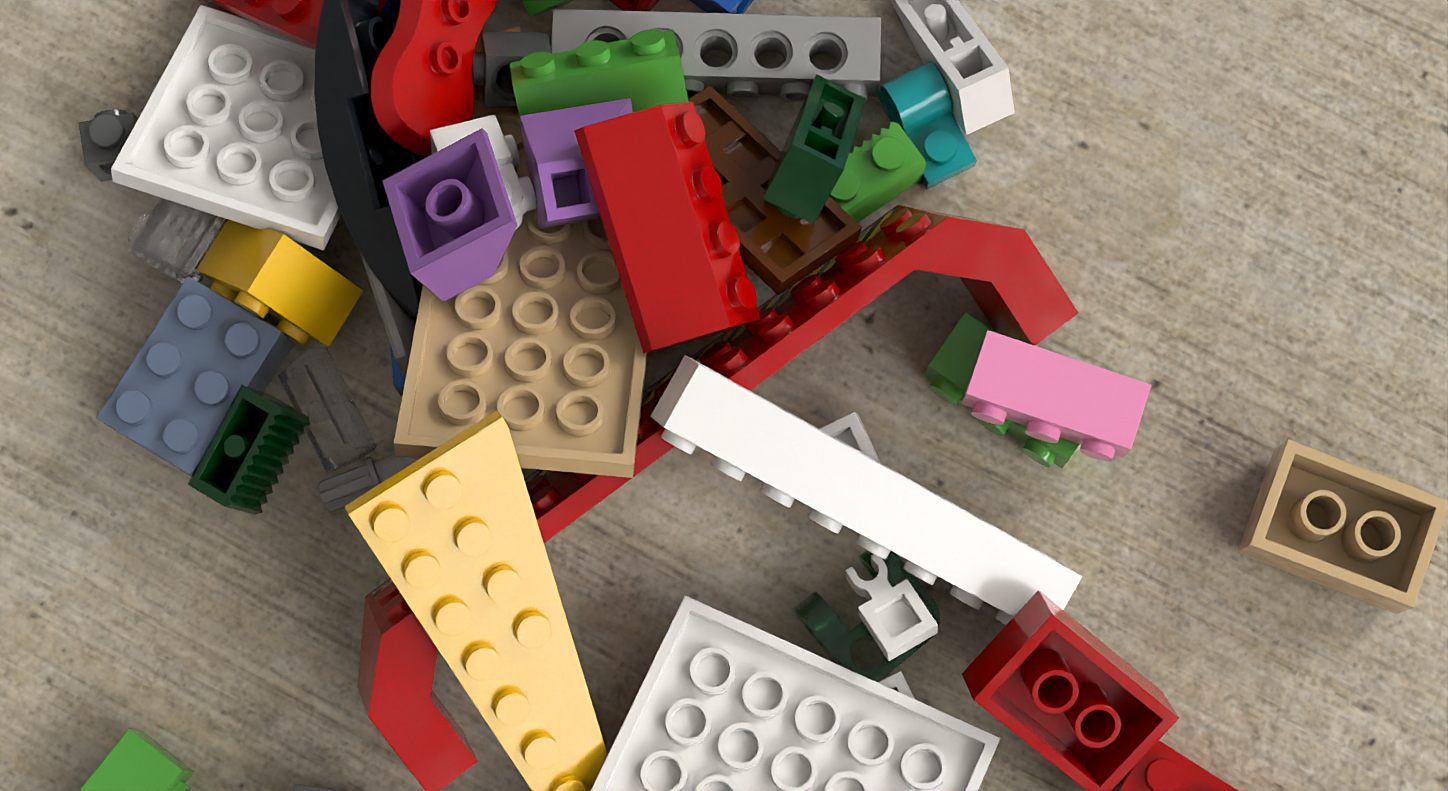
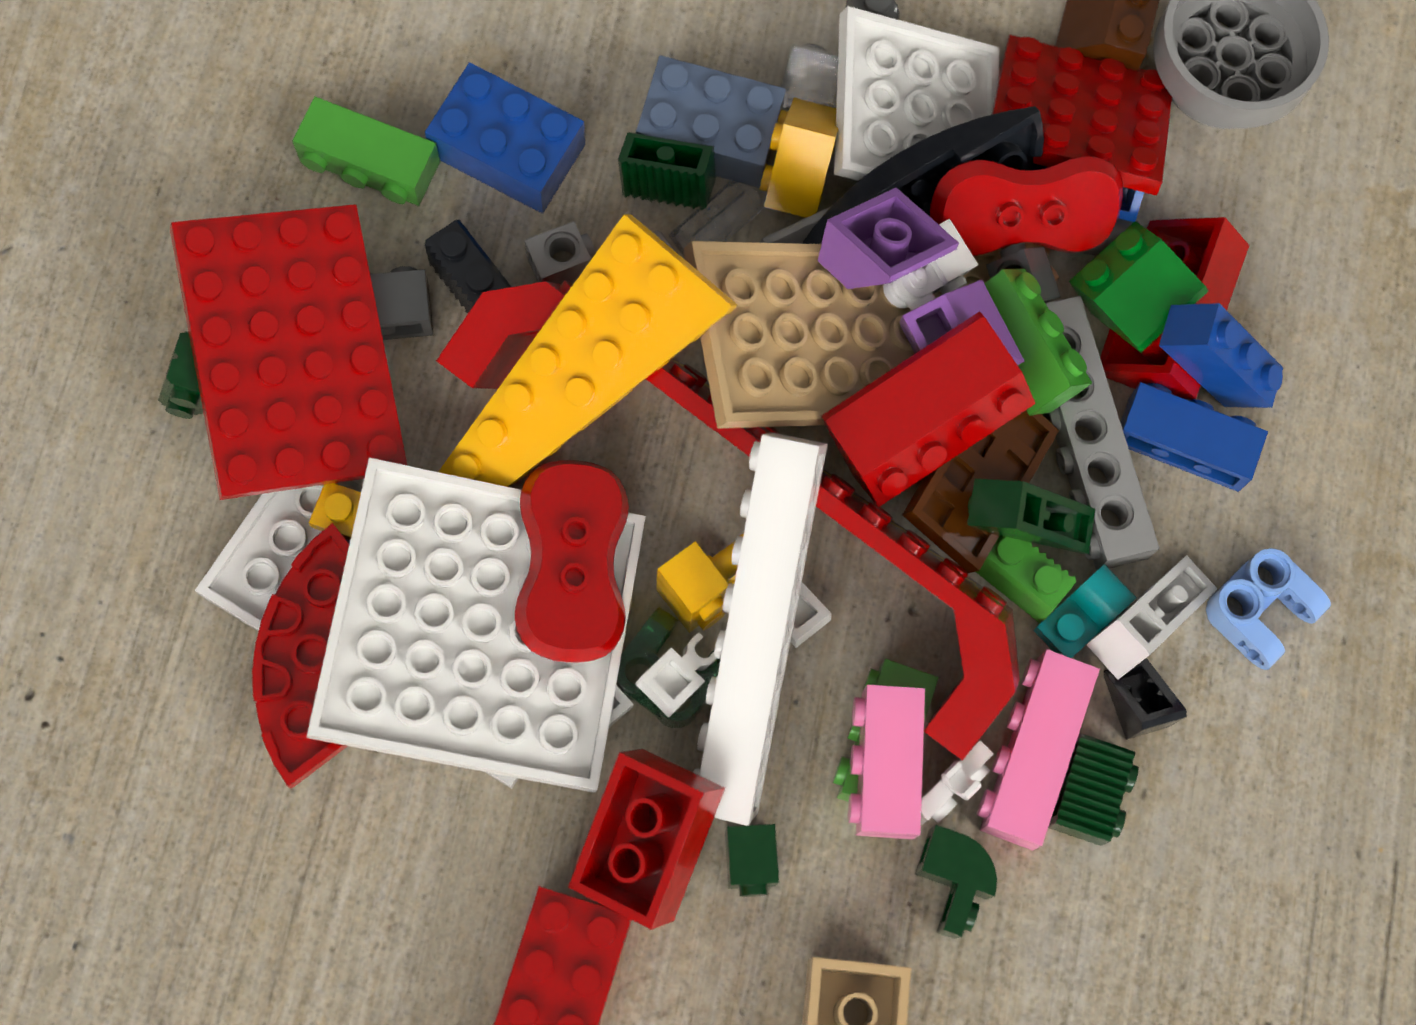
camera: 65 degrees right, 5 degrees down
(141, 639) = (506, 137): none -> blue brick
(308, 730) = (463, 264): none -> black brick
(332, 634) = (563, 238): none -> light grey brick
(762, 708) = (571, 594): none -> red plate
(788, 552) = (696, 585): none -> yellow brick
(1049, 91) = (1143, 701): none -> black slope
(1070, 225) = (1038, 749): none -> bright pink brick
(1086, 330) = (960, 779): none -> white plate
(1114, 583) = (751, 859): none -> dark green brick
(1131, 179) = (1094, 791): none -> dark green brick
(1189, 347) = (965, 868): none -> dark green brick

